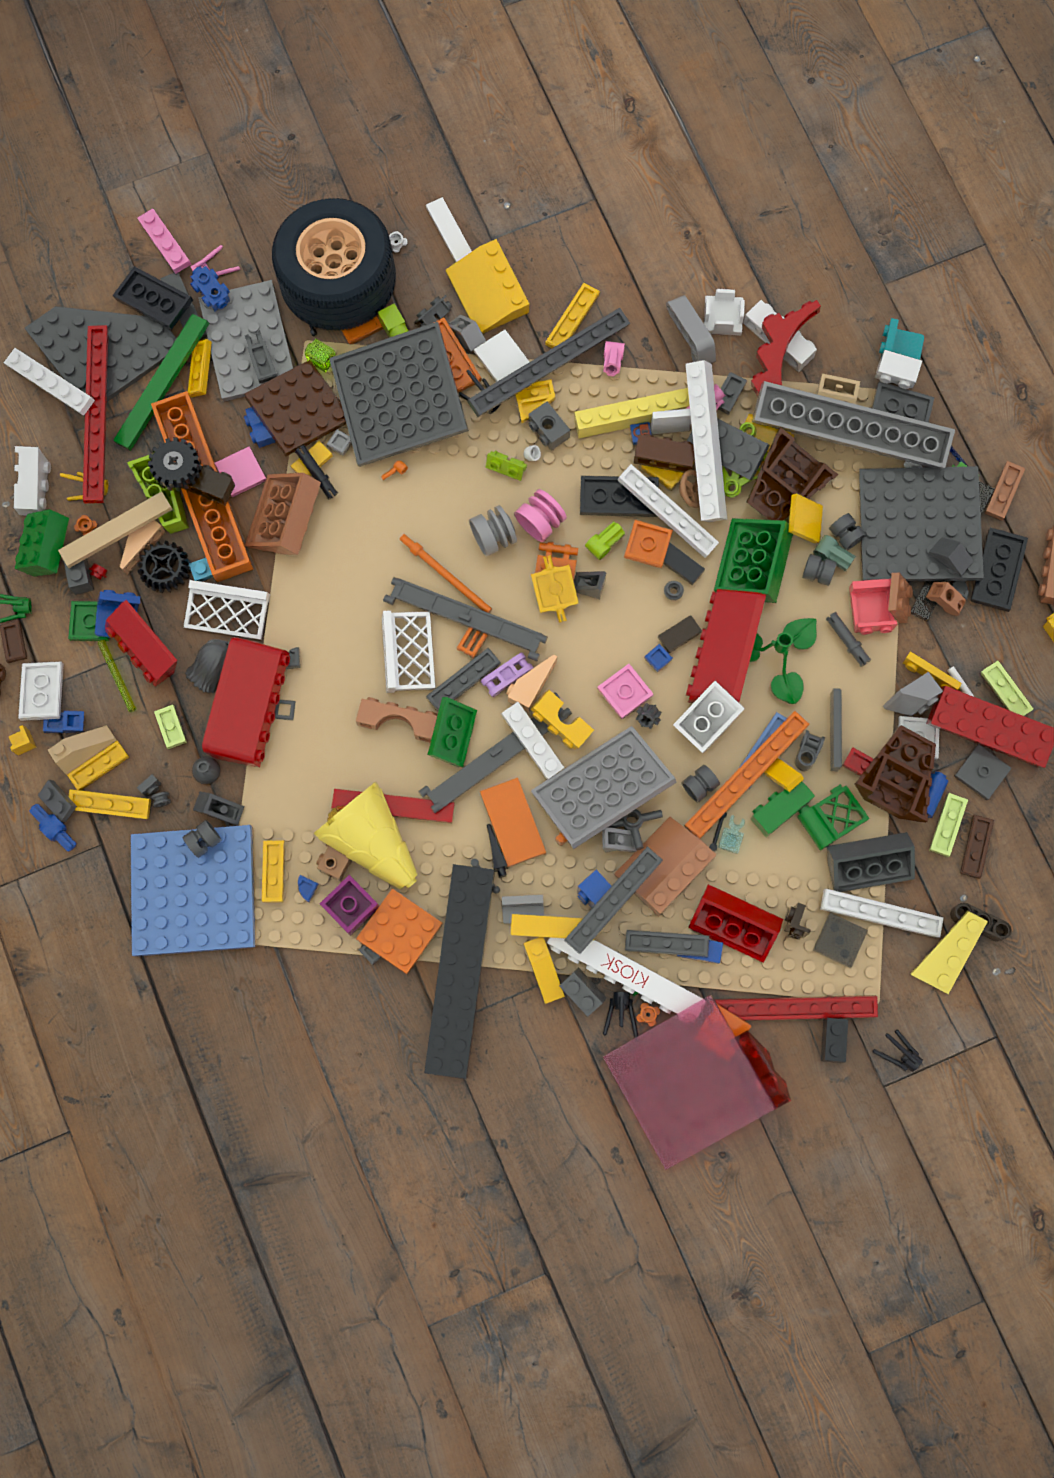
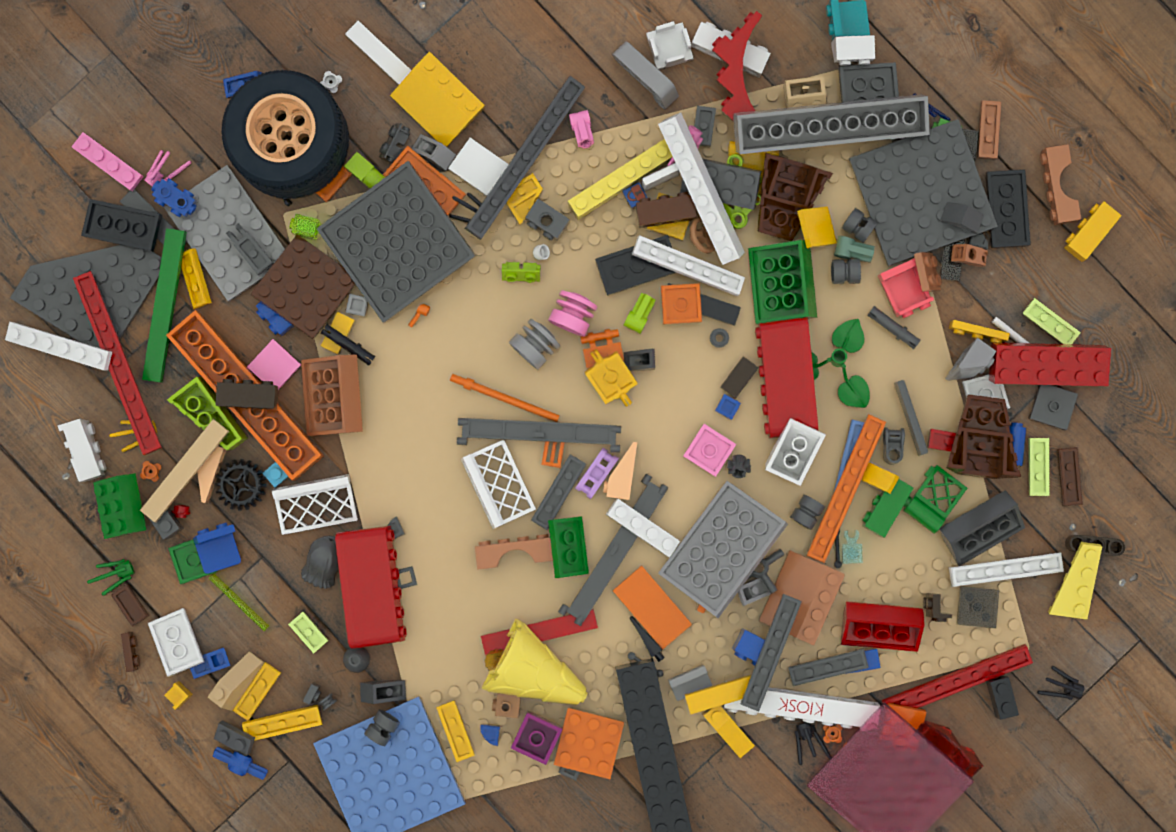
camera: 25 degrees left, 10 degrees up
(140, 644) = (252, 569): red slope -> none
(171, 473) = (226, 399): black wheel -> none
(547, 710) = (678, 506): yellow arch -> none
(573, 315) = (528, 99): yellow tile -> none
(583, 992) = (769, 736): dark grey brick -> none

